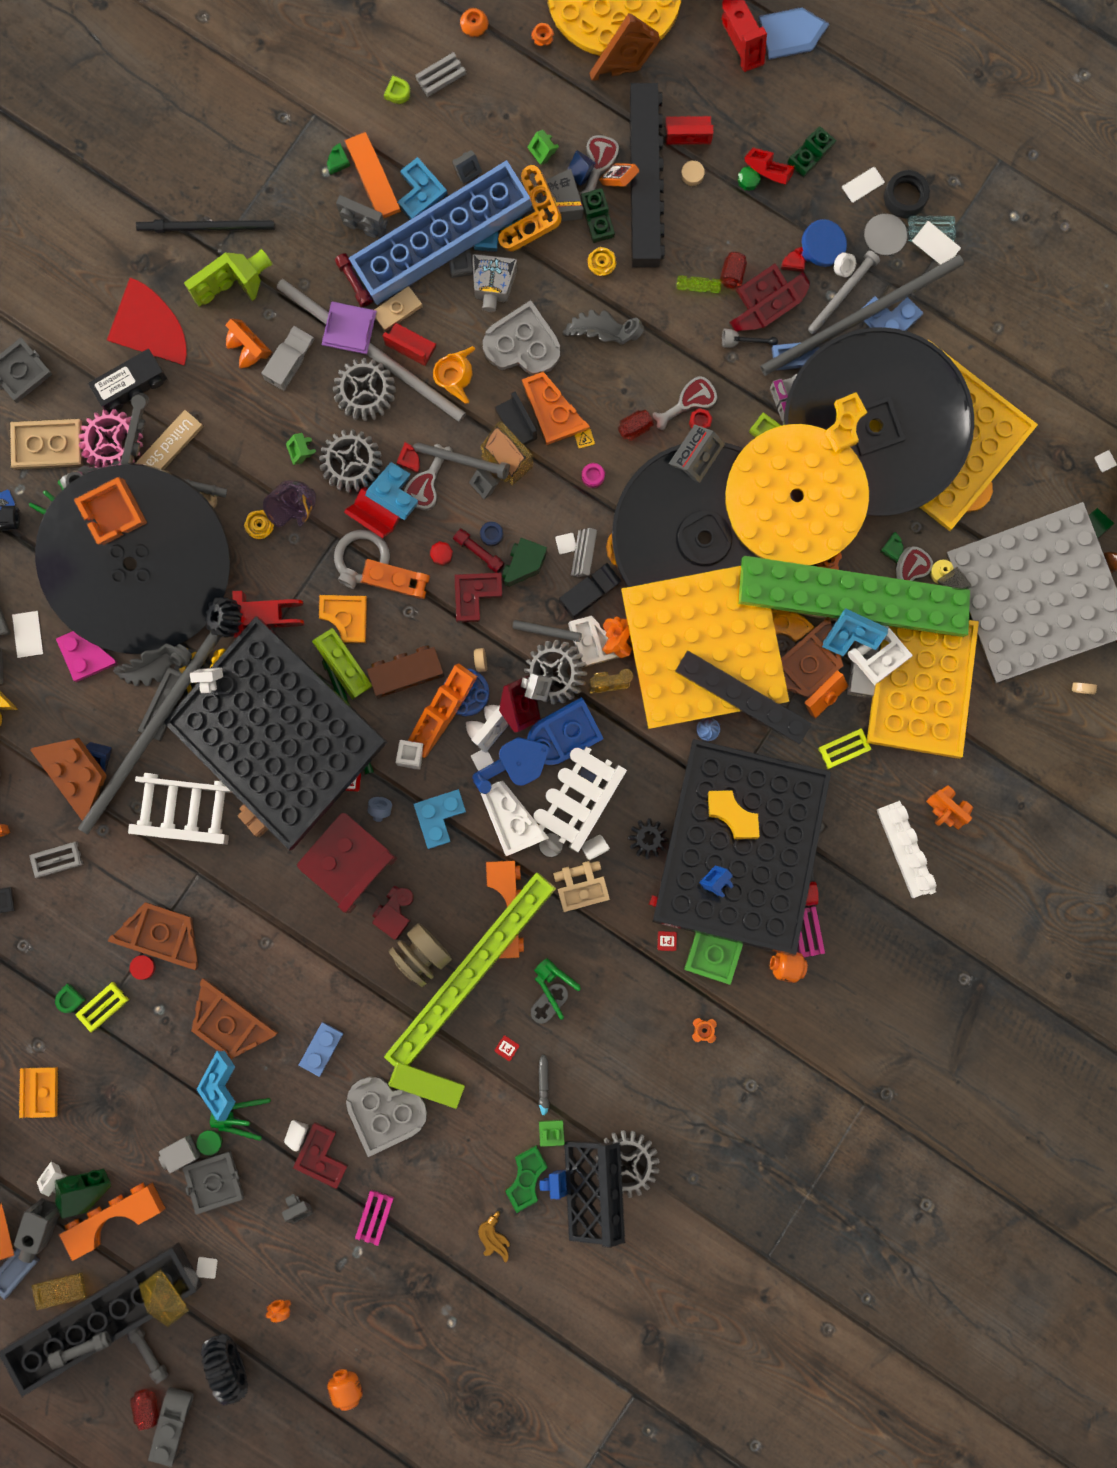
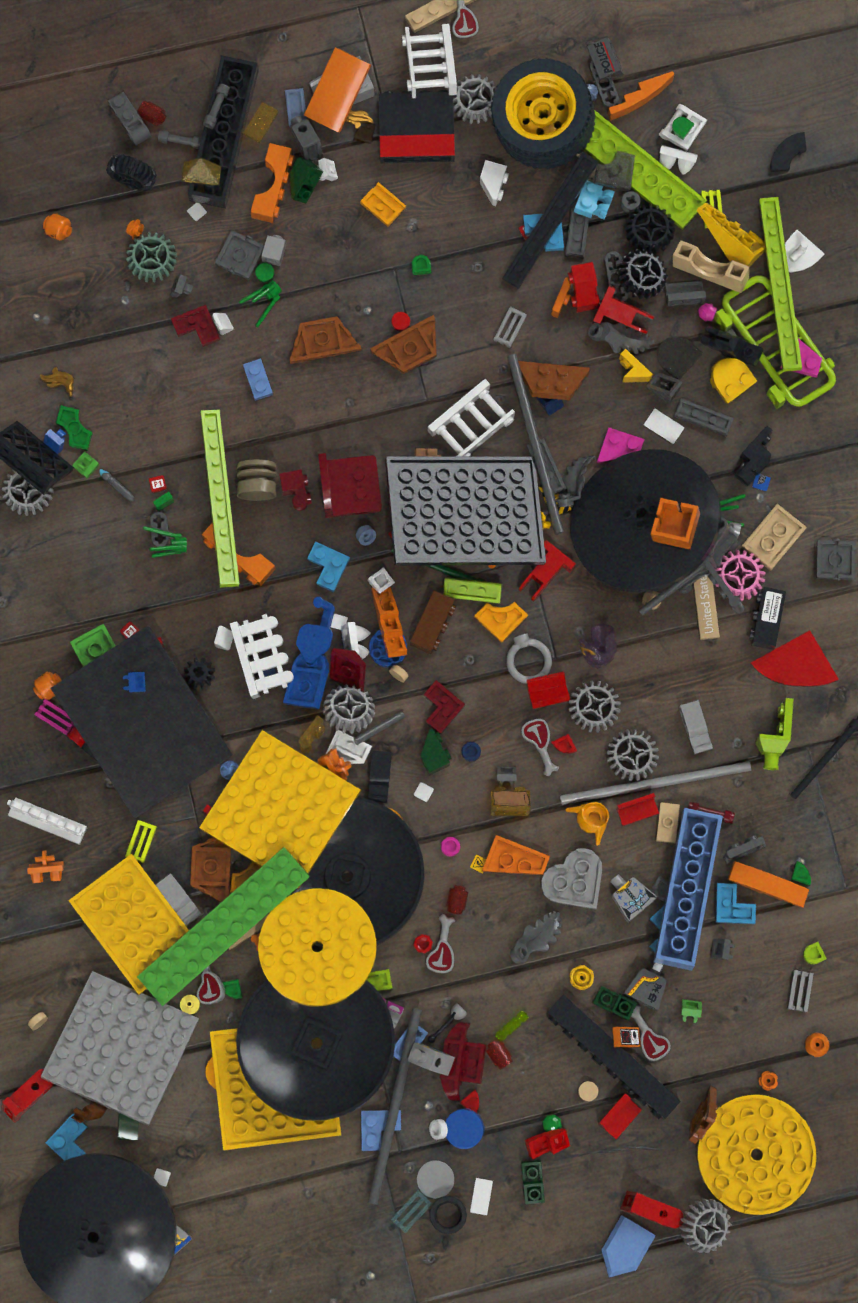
camera: 135 degrees right, 5 degrees down
(118, 993) = (399, 295): neon yellow tile -> none
(206, 678) = (534, 501): white tile -> none
(213, 1087) = (293, 300): dark azure plate -> none
(224, 617) = (562, 543): black gear -> none
(253, 348) = (736, 712): orange tile -> none
(253, 520) = (606, 611): yellow plate -> none
(283, 1267) = (161, 246): none -> sand green gear
(298, 448) = (630, 681): bright green tile -> none
(349, 327) = (680, 781): medium lavender piece -> none
(367, 1238) = (127, 312): dark pink tile -> none
(384, 1114) = (187, 380): light grey plate -> none
(388, 493) = (551, 708): dark azure plate -> none
(394, 578) = (496, 666): orange plate -> none
(426, 1085) = (180, 418): lime tile -> none
(441, 553) = (486, 710): red tile -> none
(463, 539) = (484, 731): dark red bar -> none
(501, 470) = (501, 786): dark grey bar -> none
(511, 820) = (285, 603): white wing -> none
(517, 419) = (527, 830): black panel -> none
(519, 1024) = (163, 501): none -> green tile
(537, 686) = (348, 686): light grey tile -> none
(539, 217) = (642, 959): light orange beam -> none
(551, 847) = (249, 613): light grey tile -> none
(581, 167) = (655, 1020): dark blue slope -> none
(584, 552) = (406, 794): light grey tile -> none
(584, 893) = (203, 606): tan plate -> none
(697, 452) = (399, 910): dark grey panel -> none
(709, 1035) = (58, 598): orange plate -> none
(741, 822) = (174, 731): yellow tile -> none
(743, 697) = (226, 799): black plate -> none
(795, 318) = (426, 1057): none -> light grey torso
(826, 694) = (183, 859): orange plate -> none
(843, 432) = (328, 1007): yellow tile -> none
(852, 628) = (207, 902): dark azure plate -> none
(871, 259) = (422, 1113): light grey bar -> none
(882, 662) = (169, 909): white plate -> none
(936, 243) = (398, 1203): white sticker -> none
(955, 580) = (176, 1002): clear smoke tile -> none

